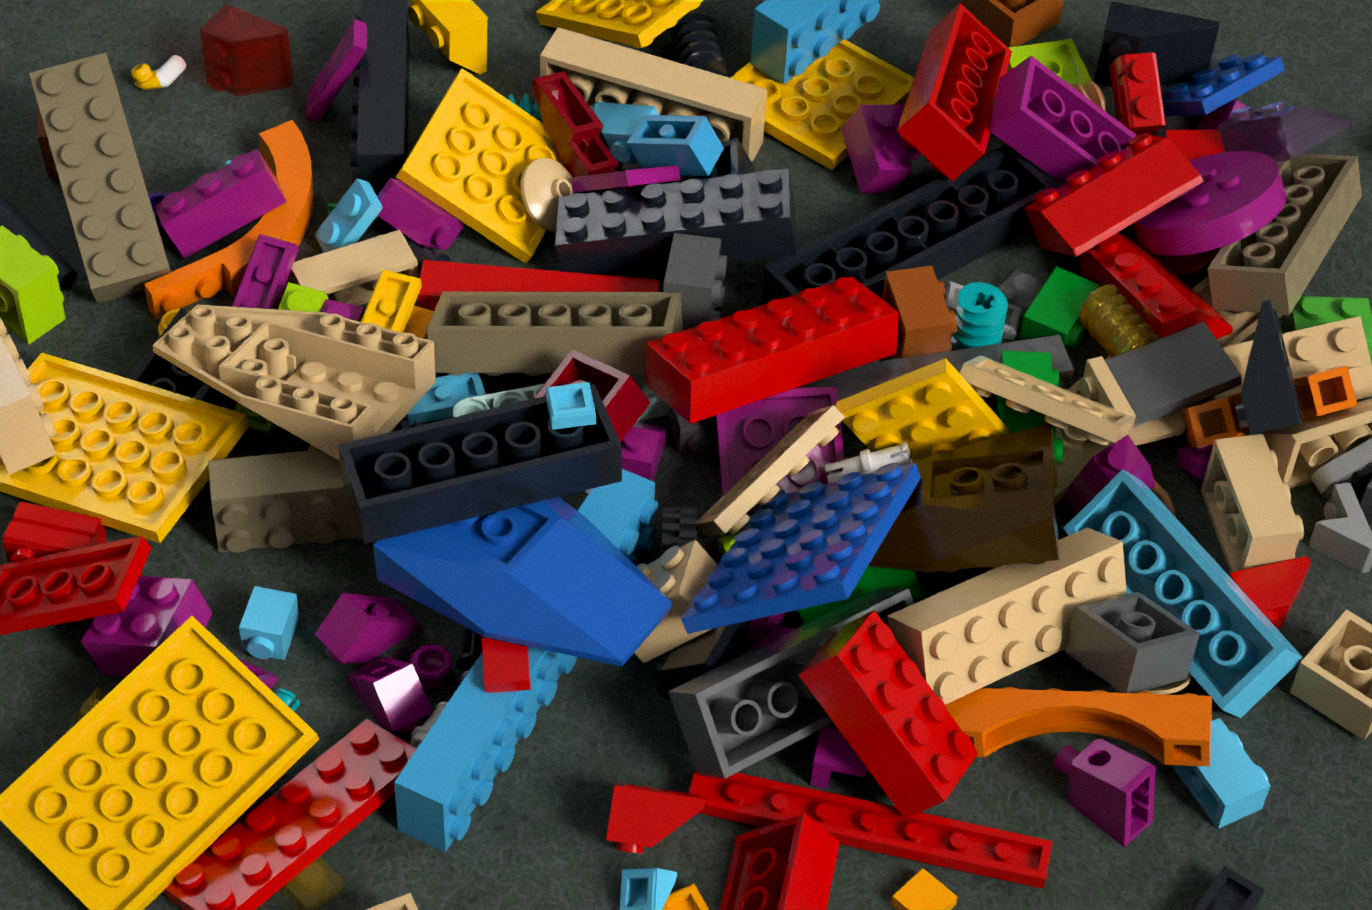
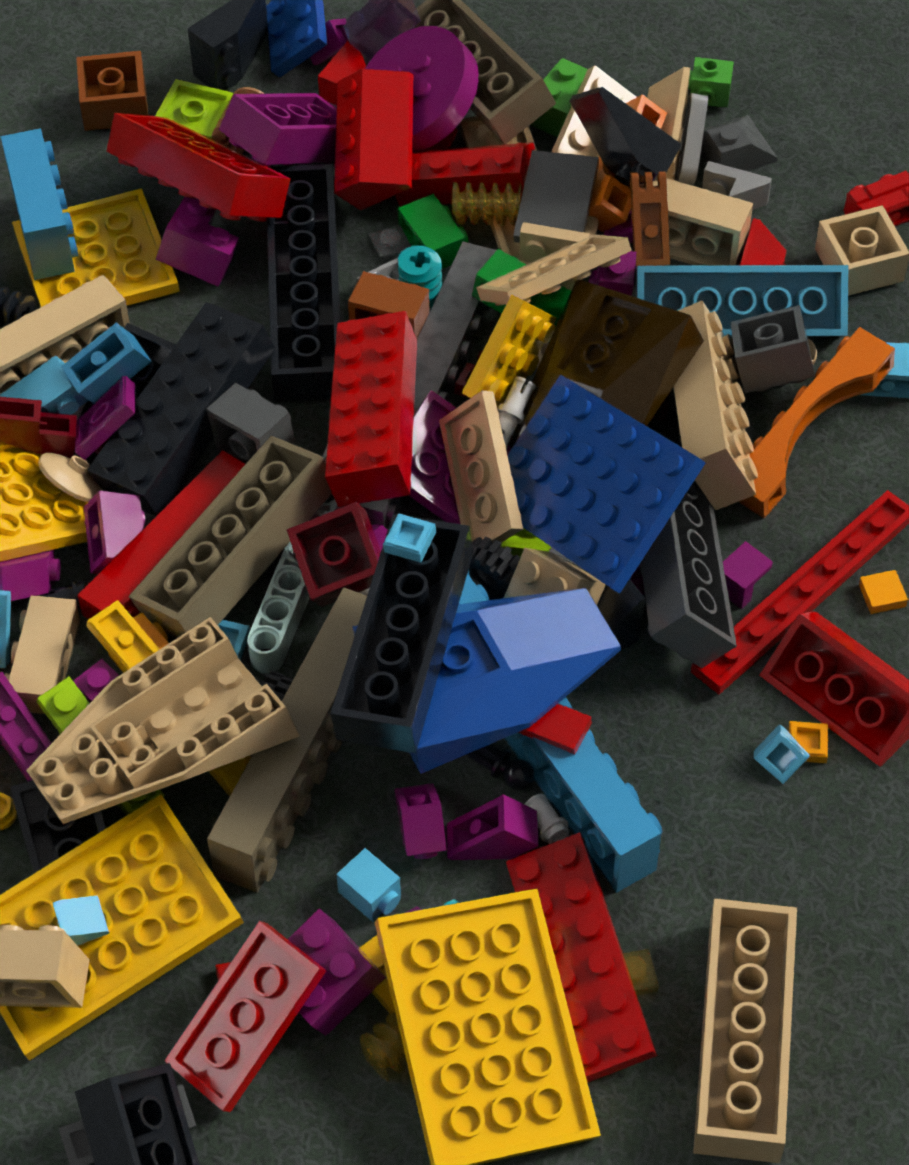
camera: 55 degrees left, 5 degrees up
(48, 531) = (167, 1006): red brick -> none
(85, 423) = (81, 918): none -> medium azure slope
(432, 666) = (482, 790): magenta tile -> none
(515, 244) = (111, 525): none -> slope
(648, 814) = (723, 714): red slope -> none
(889, 714) = (759, 514): red brick -> none
(1110, 788) = (868, 432): magenta torso -> none
(1137, 93) = (271, 68): red brick -> none
(1197, 455) = (650, 220): none -> dark orange hinge

